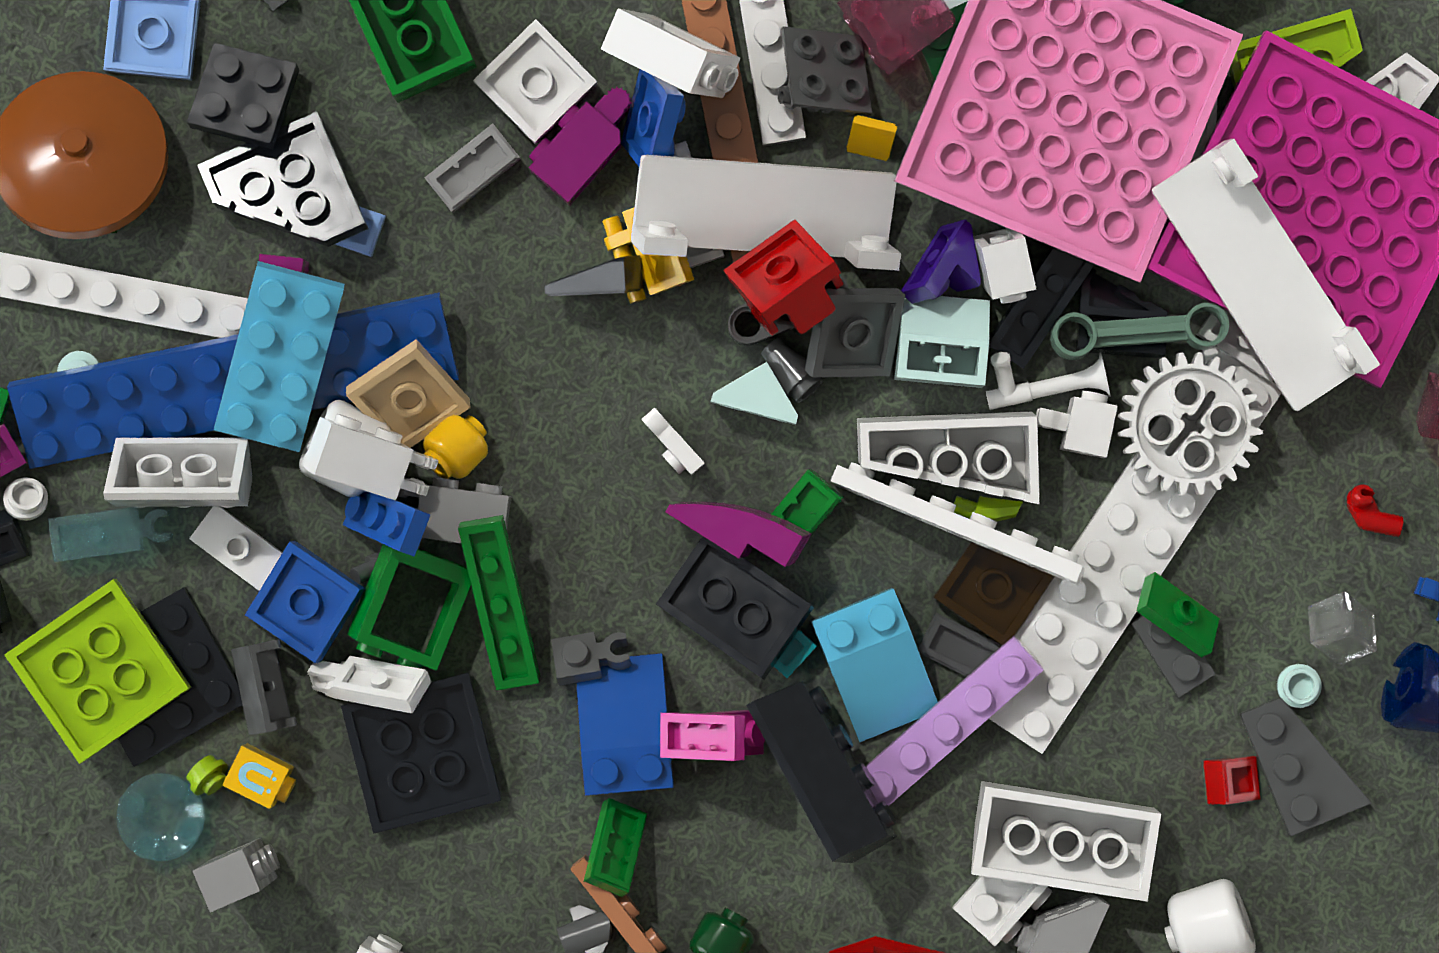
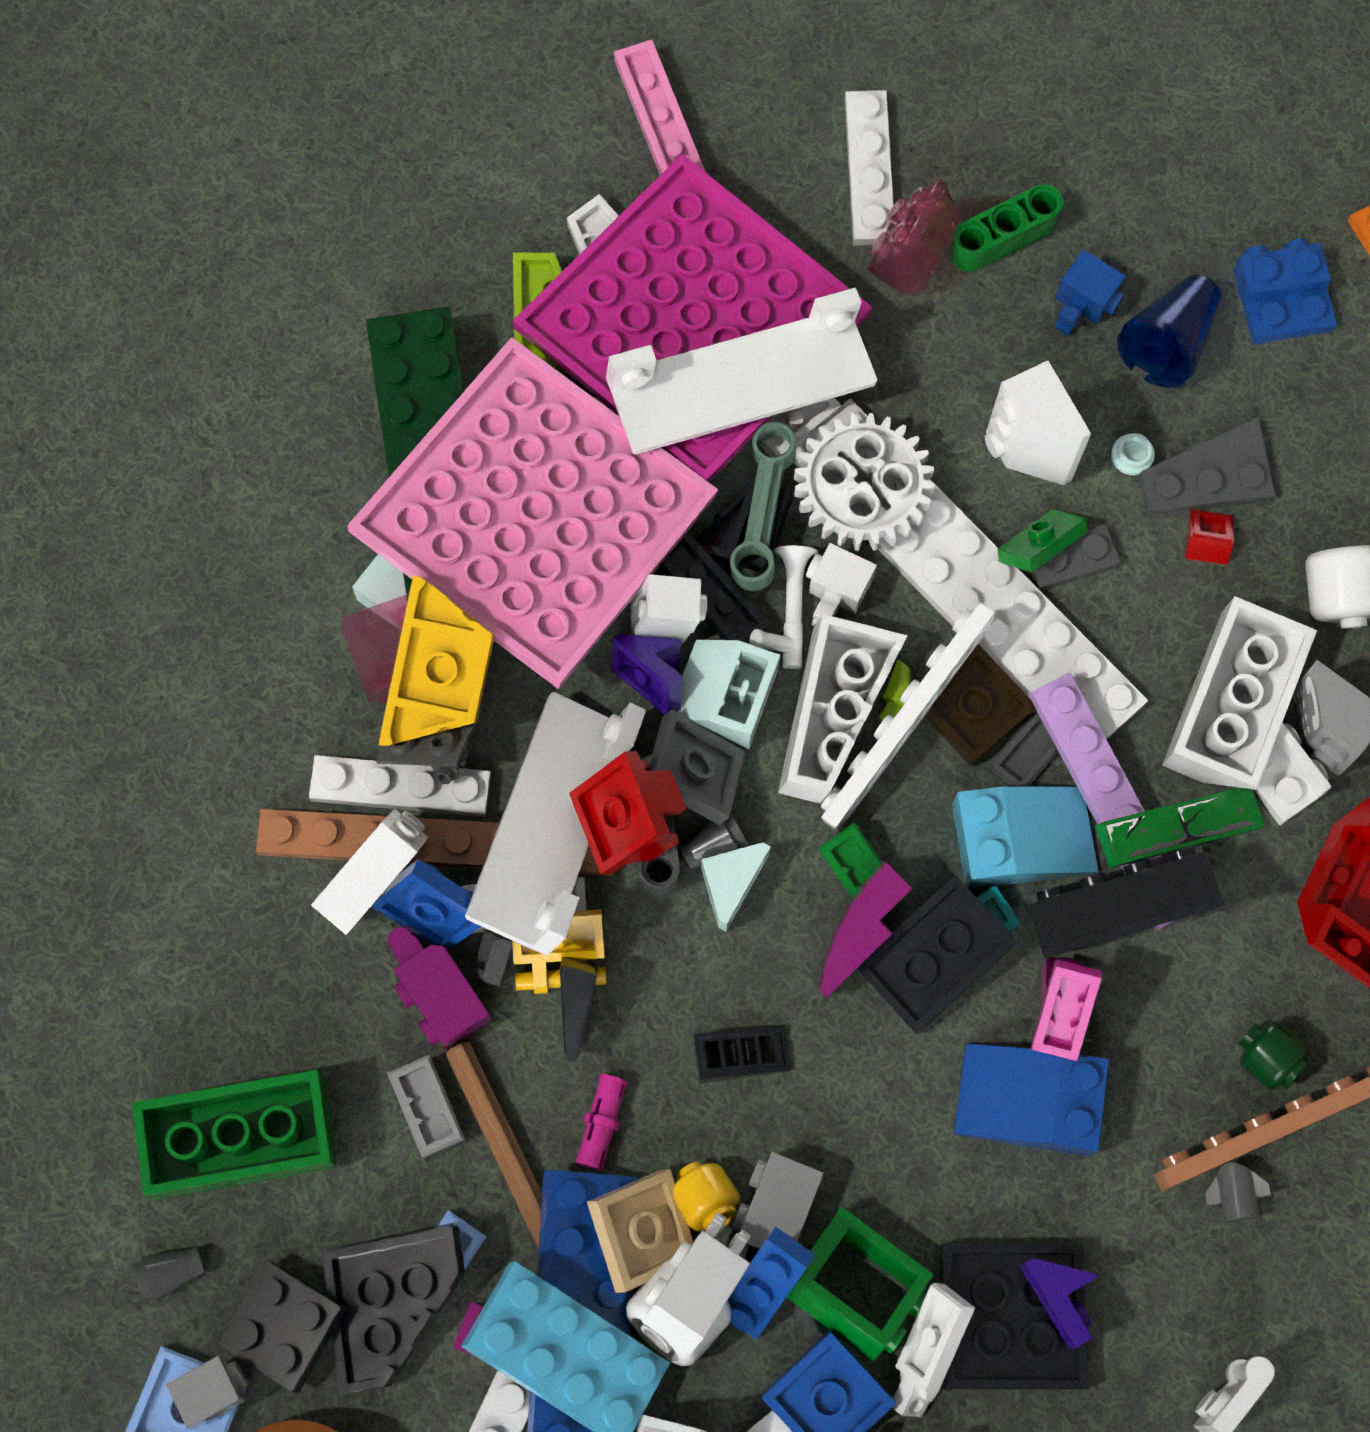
camera: 75 degrees left, 15 degrees down
(167, 47) = (208, 1391): none -> light grey brick
(454, 782) = (1052, 1285): none -> dark purple slope
(466, 240) = (498, 1134): none -> medium nougat axle
(499, 602) = (878, 1189): green plate -> none
(500, 333) = (601, 1122): none -> dark pink pin
(535, 81) = (357, 1020): white plate -> none
(581, 657) = (953, 1124): dark grey plate -> none
(584, 411) = (703, 1056): none -> black slope
(615, 847) = (1156, 1136): green plate -> none
(618, 190) = (492, 957): none -> dark grey tile
(679, 453) = (768, 971): white plate -> none
(871, 137) = (507, 709): yellow slope -> none
(881, 59) = (436, 668): none -> yellow wing
(917, 808) = (1179, 826): none -> green tile
(1288, 580) = (1037, 426): none -> white slope
(1342, 628) = (1095, 398): clear panel -> none
(1367, 514) = (987, 356): red arm -> none

